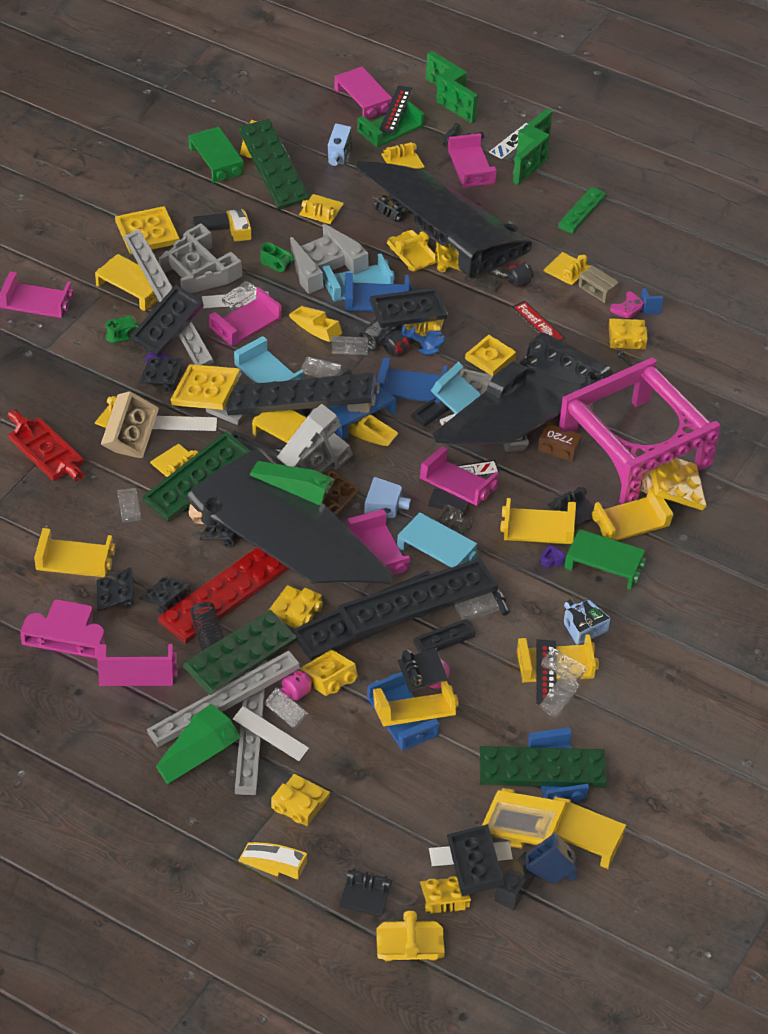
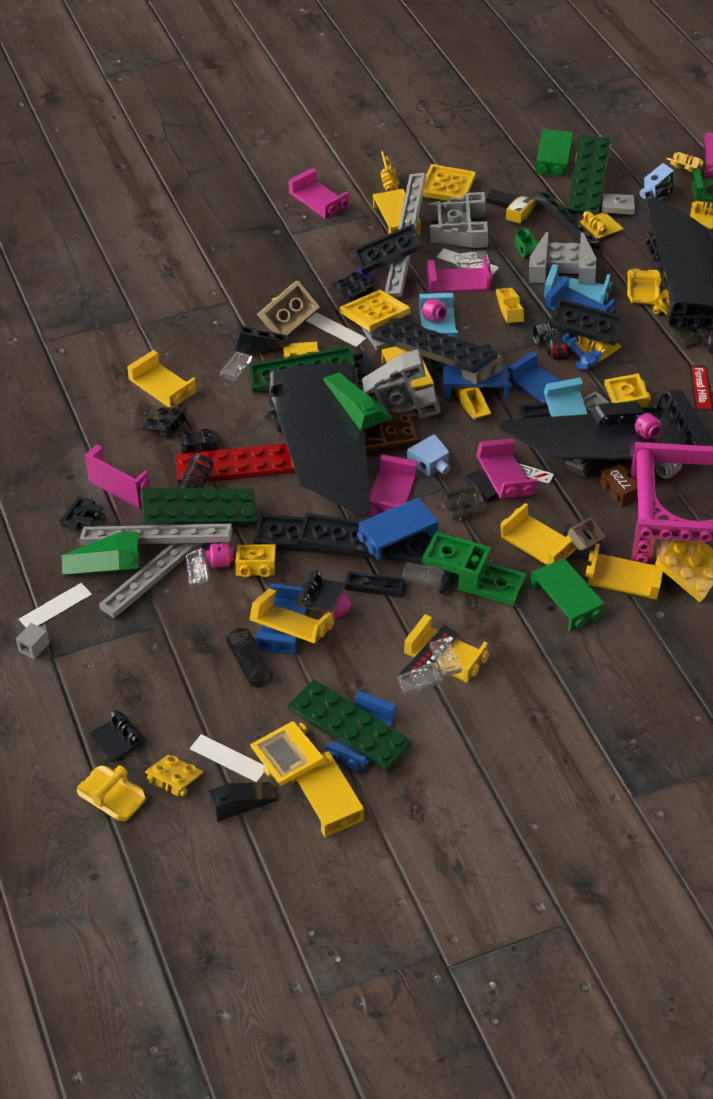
camera: 40 degrees right, 0 degrees up
(45, 447) = (217, 298): red plate -> none
(64, 630) = (101, 427): dark pink brick -> none
(87, 246) = (389, 175): none -> yellow hinge
(121, 328) = (354, 241): green piece -> none
(126, 470) = (255, 340): none -> black slope
(126, 719) = (78, 514): none -> black plate
(190, 816) = (56, 605): none -> white sticker
(209, 856) = (32, 640): none -> light grey brick
(260, 361) = (434, 310): none -> dark pink head
(270, 733) = (167, 579): white sticker -> none
(274, 859) = (76, 672): slope -> none
(284, 215) = (566, 218): none -> black plate
(297, 606) = (282, 499): yellow plate -> none
(299, 799) = (140, 640): yellow plate -> none
(319, 180) = (618, 203): none -> light grey plate
(320, 367) = (480, 337): clear plate -> none
(349, 345) = (519, 332): clear plate -> none
(350, 116) = (682, 159): none -> yellow hinge
(387, 746) = (243, 644): none -> black piece
(433, 575) = (396, 525): none -> blue panel
(437, 541) = (441, 504): medium azure panel -> none
(475, 860) = (214, 761): black plate -> none
(519, 577) = (474, 568): none -> green bracket
(542, 378) = (648, 426): none -> dark pink head
(552, 556) = (526, 567): dark purple tile -> none
(552, 860) = (275, 799): dark blue torso -> none
(584, 619) = (500, 632): torso -> none
(589, 502) = (579, 538): none -> dark tan piece

